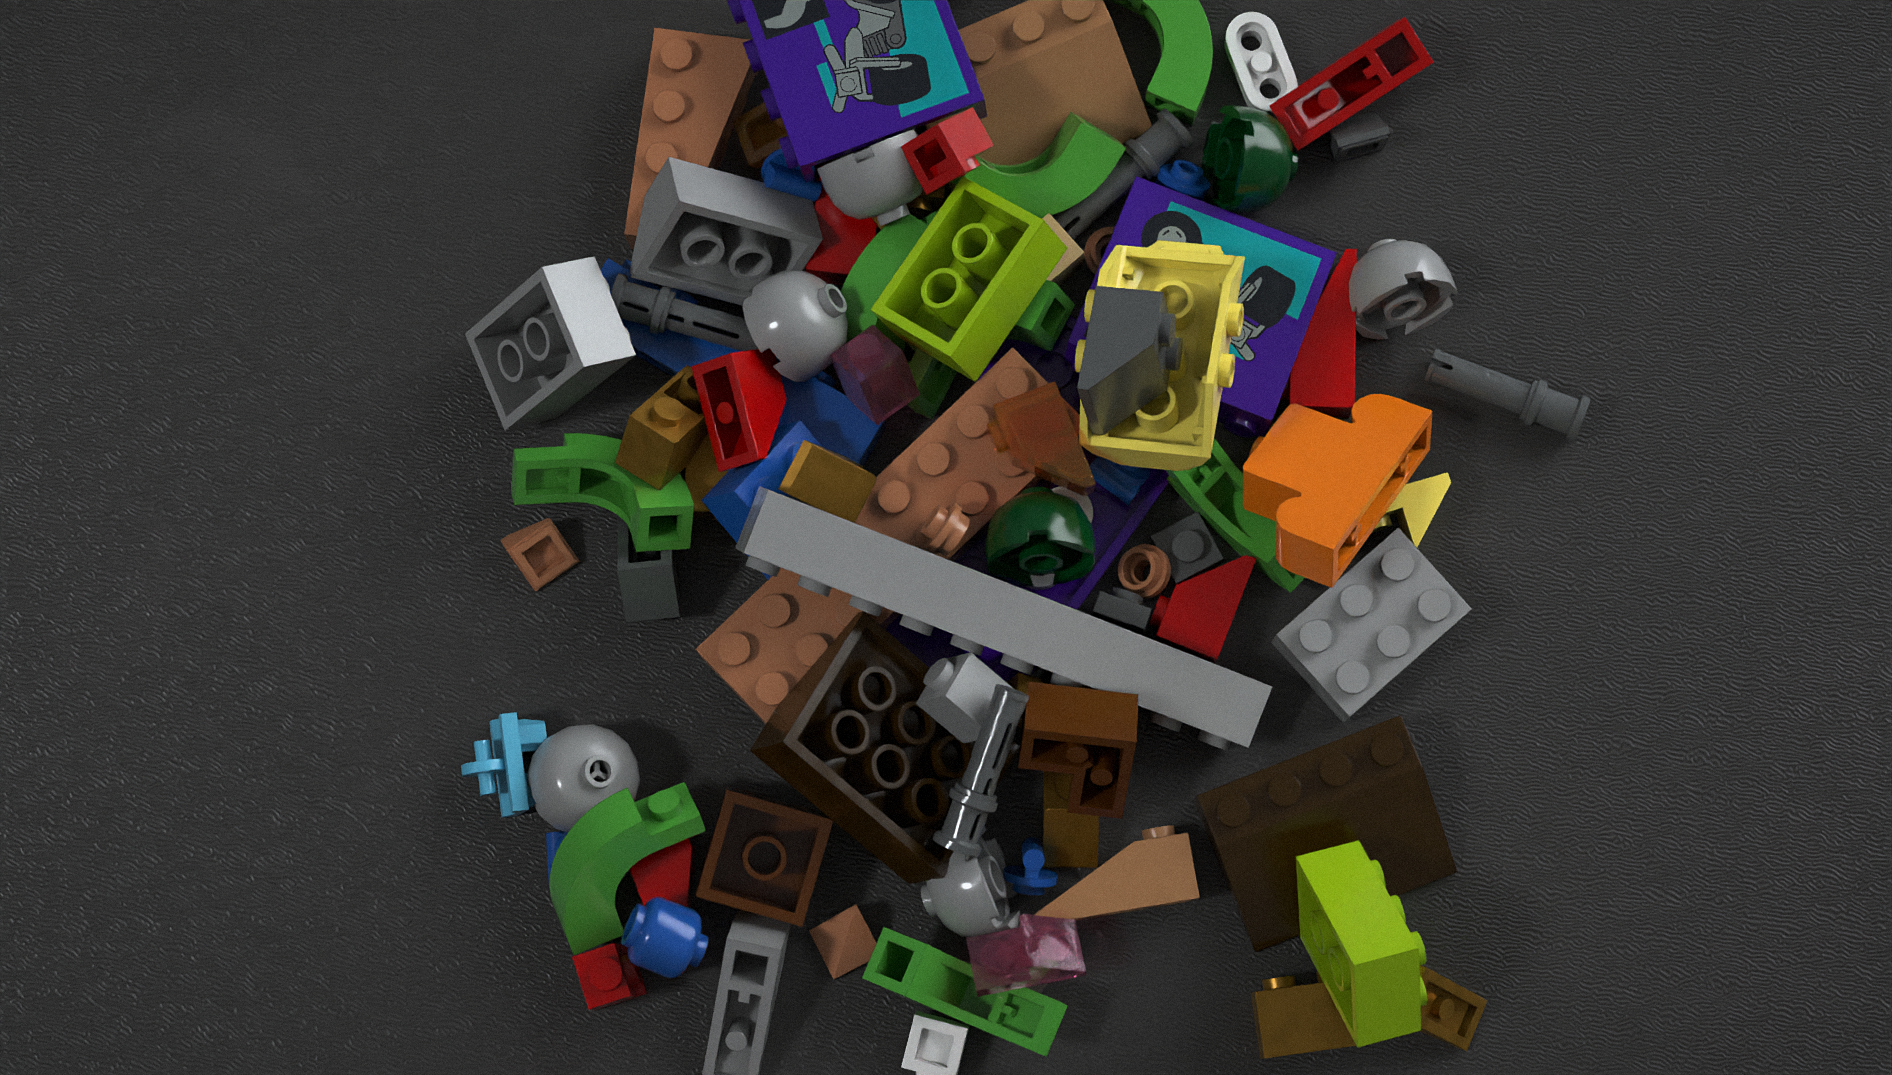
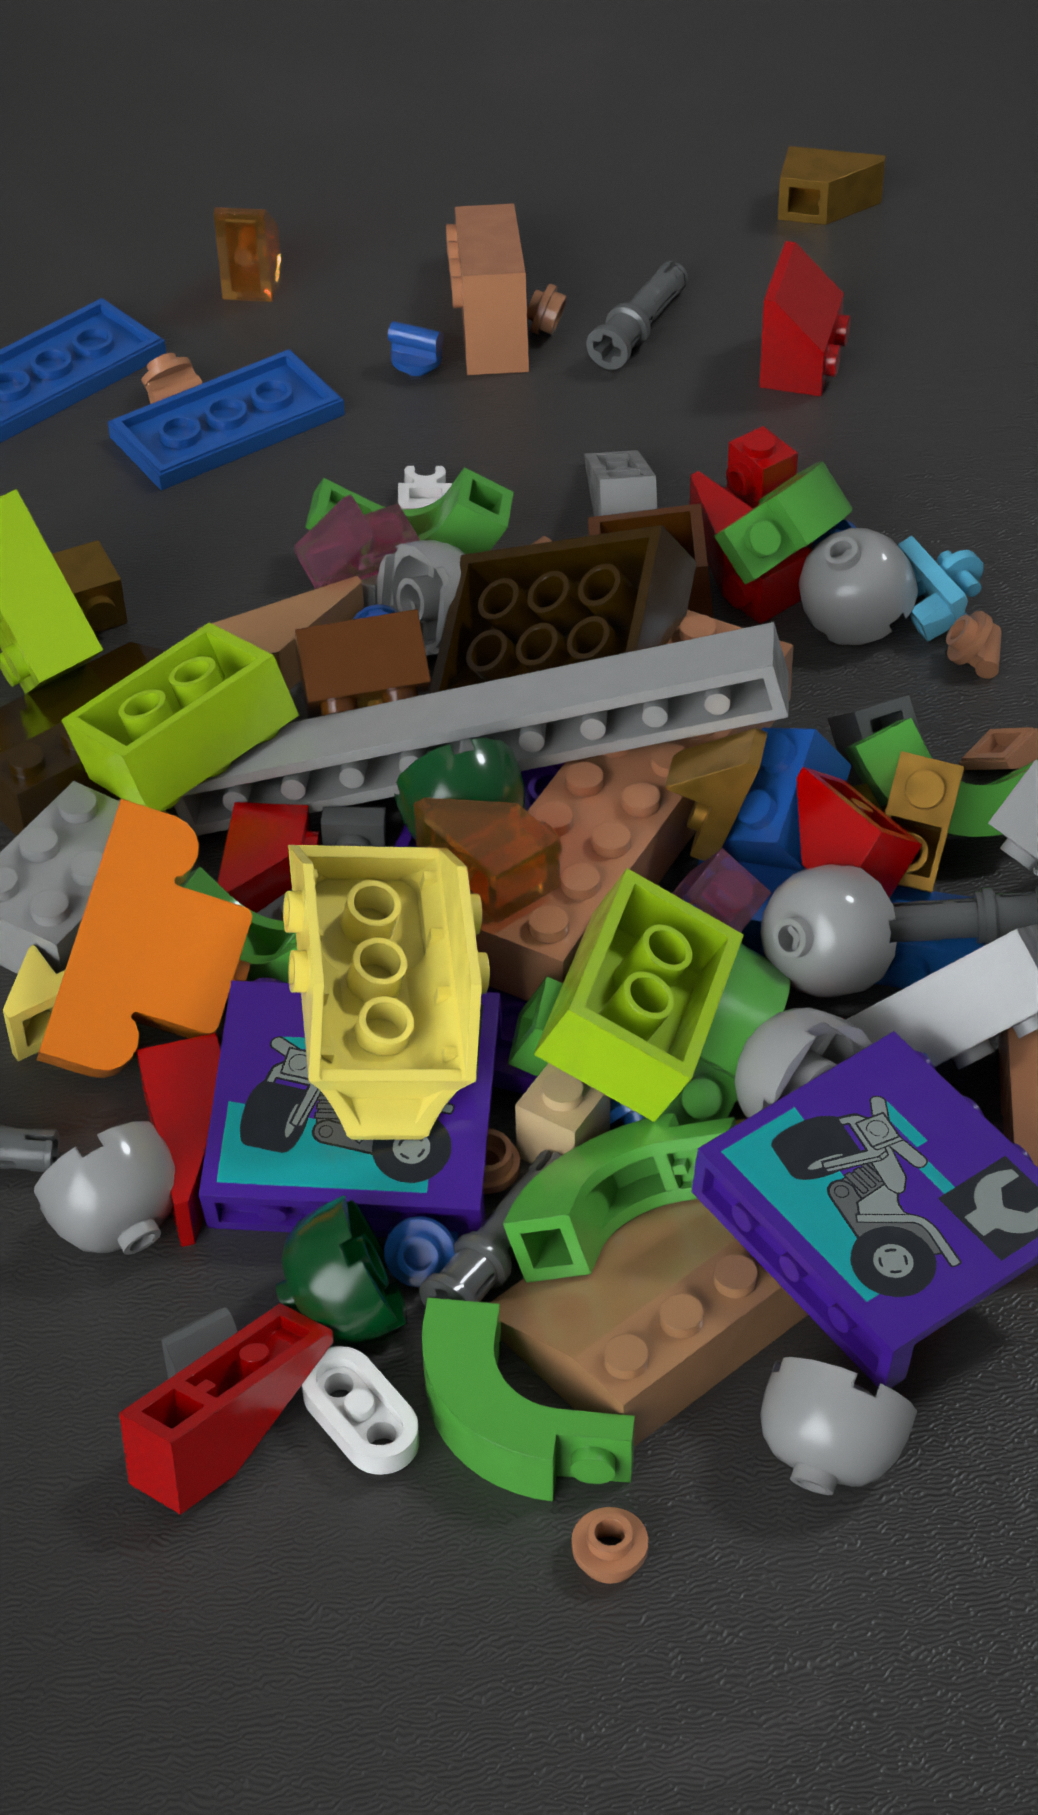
camera: 160 degrees right, 35 degrees down
(504, 690) = (975, 642): none -> nougat plate
(664, 937) = (715, 466): blue head -> none
(944, 528) = (570, 758): nougat plate -> none
(947, 150) = (718, 1082): red brick -> none
(959, 694) = (488, 657): light grey brick -> none
(975, 794) = (452, 591): dark grey pin -> none
(1126, 354) = (418, 891): dark grey slope -> none
(1250, 721) = (181, 718): none -> lime brick

